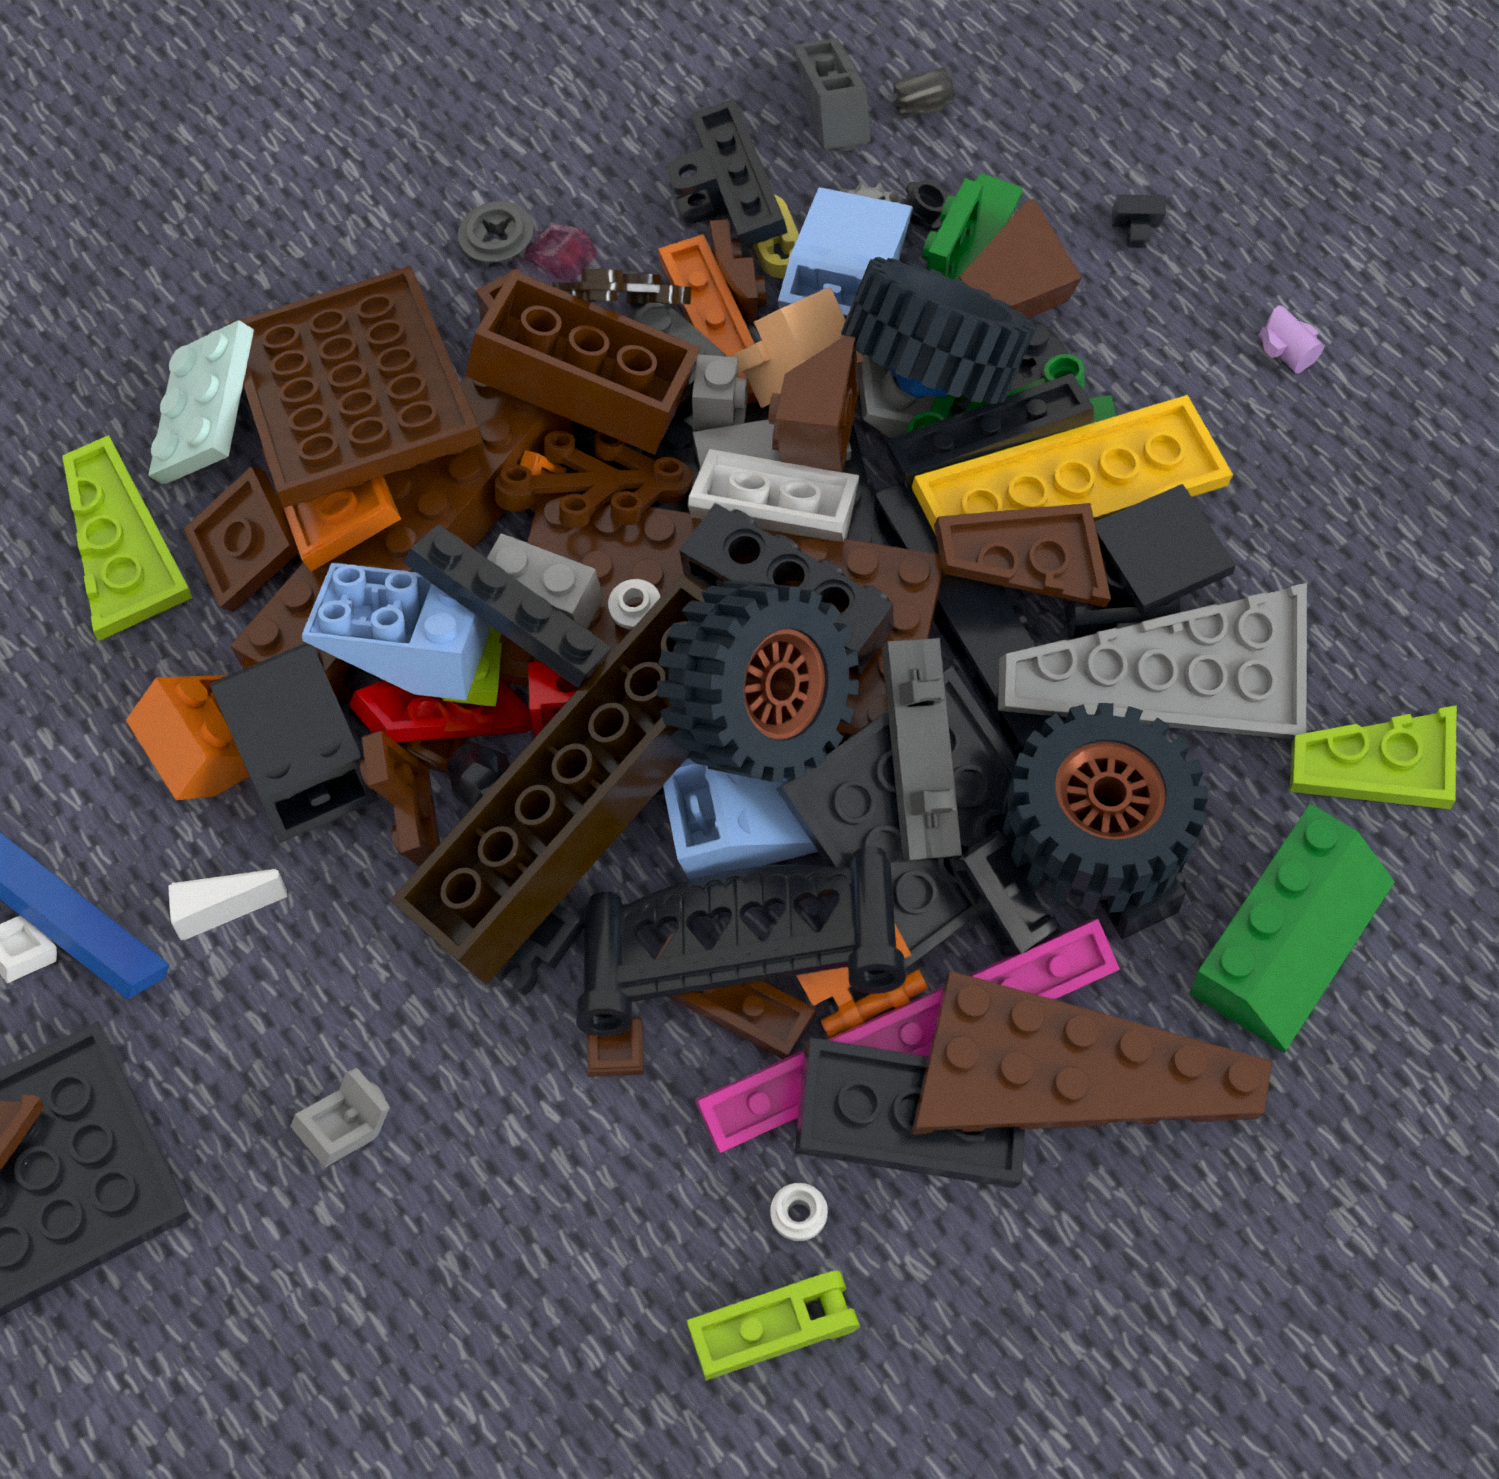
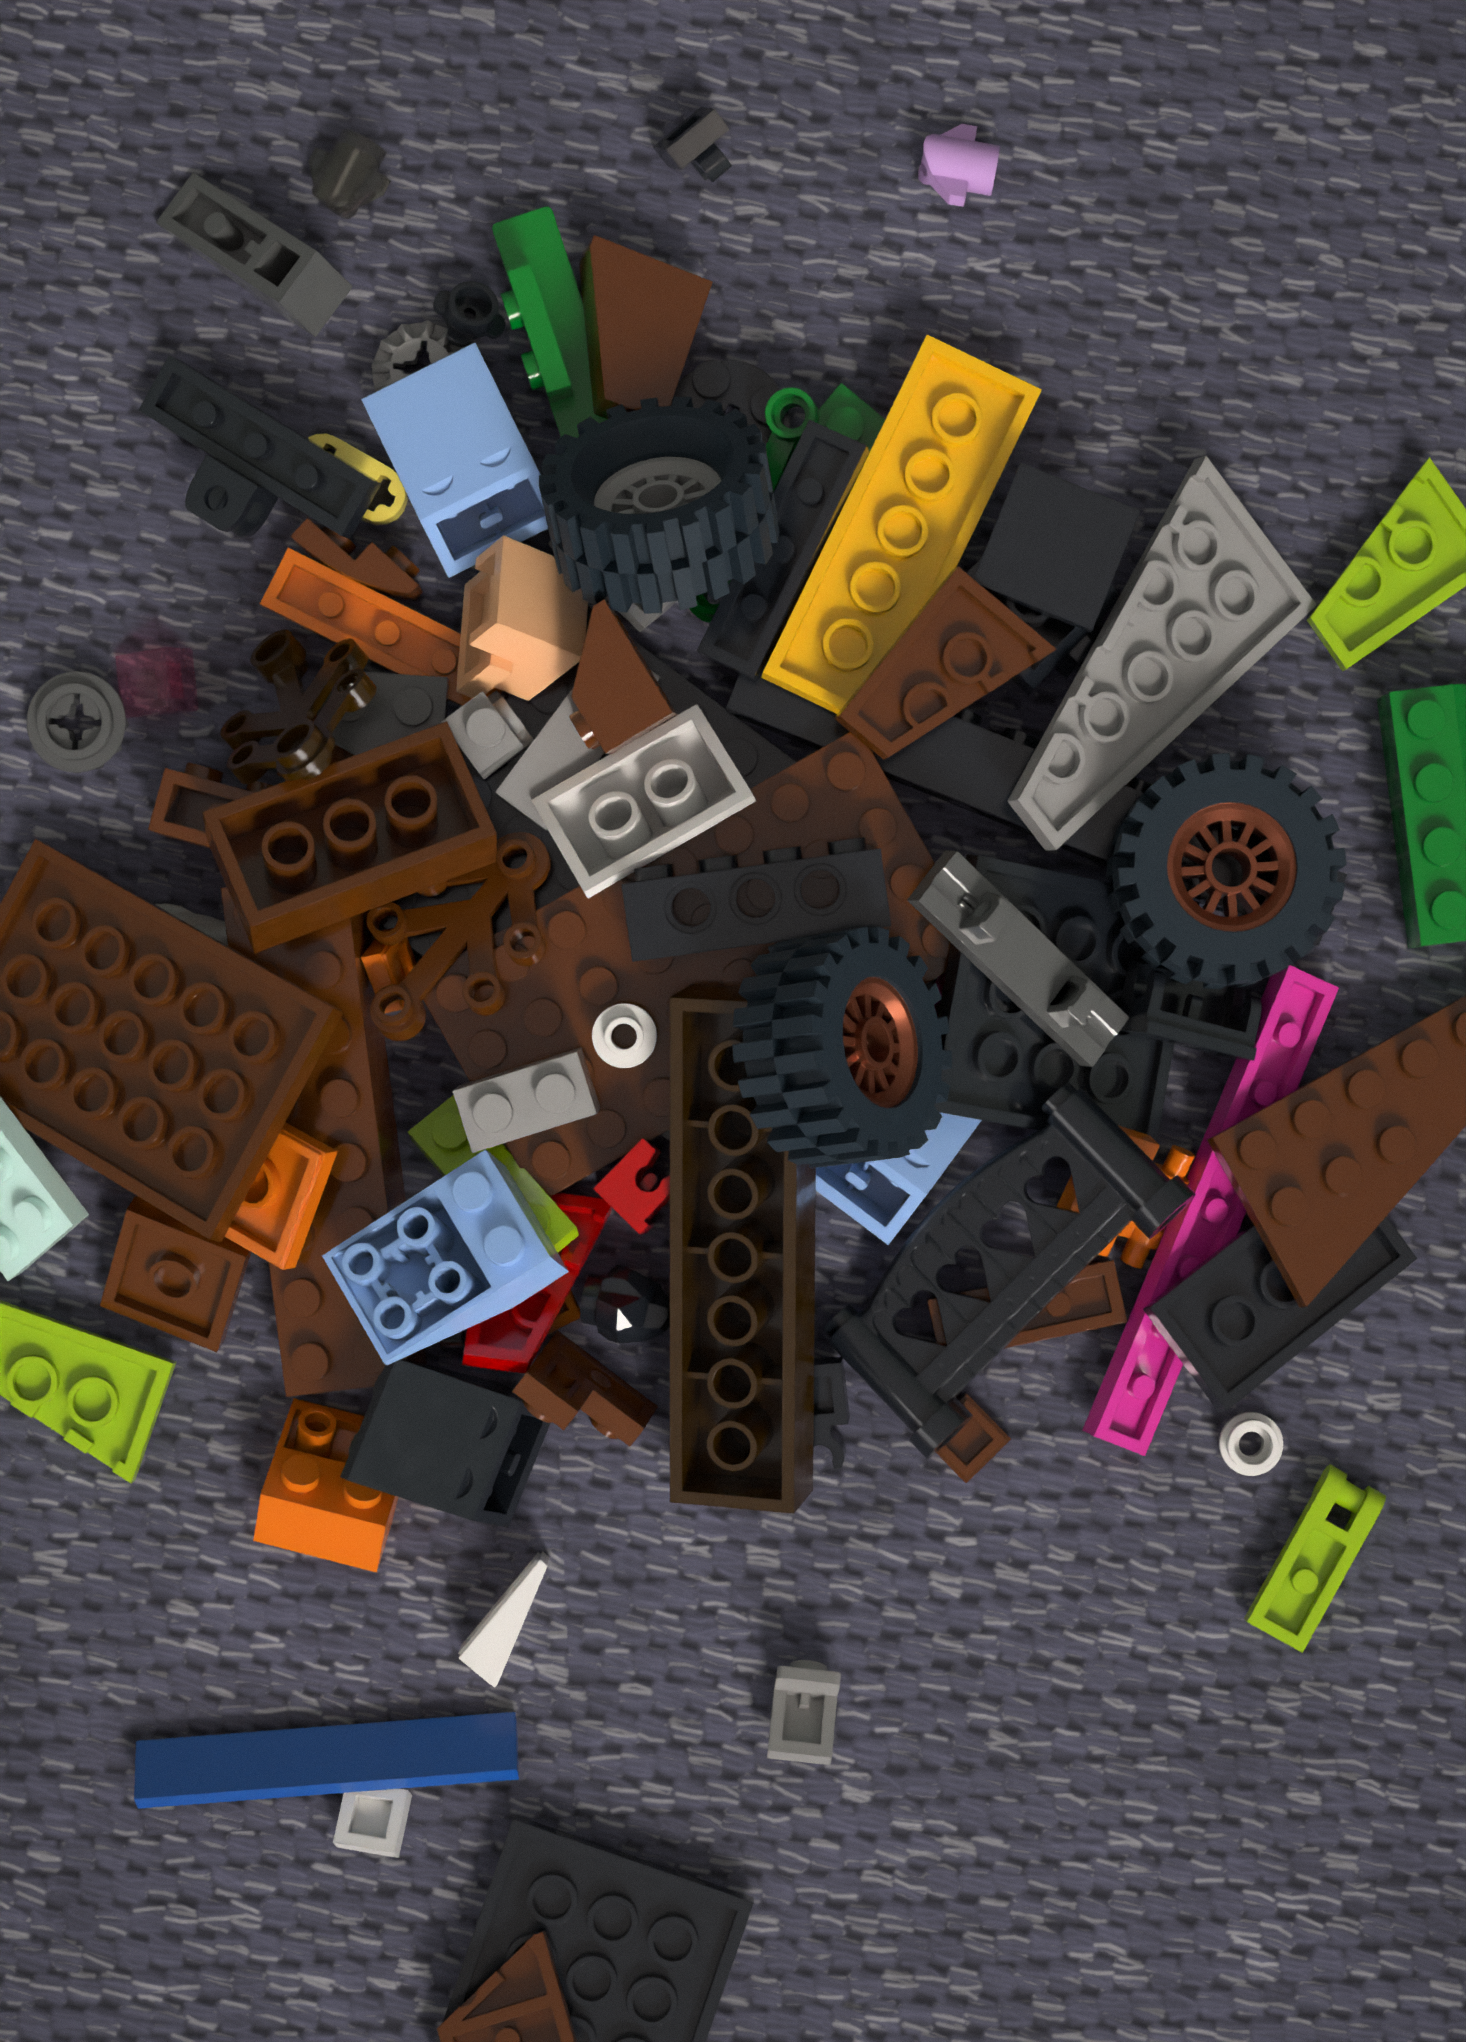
camera: 50 degrees left, 25 degrees up
(507, 605) = (536, 1164): black plate -> none

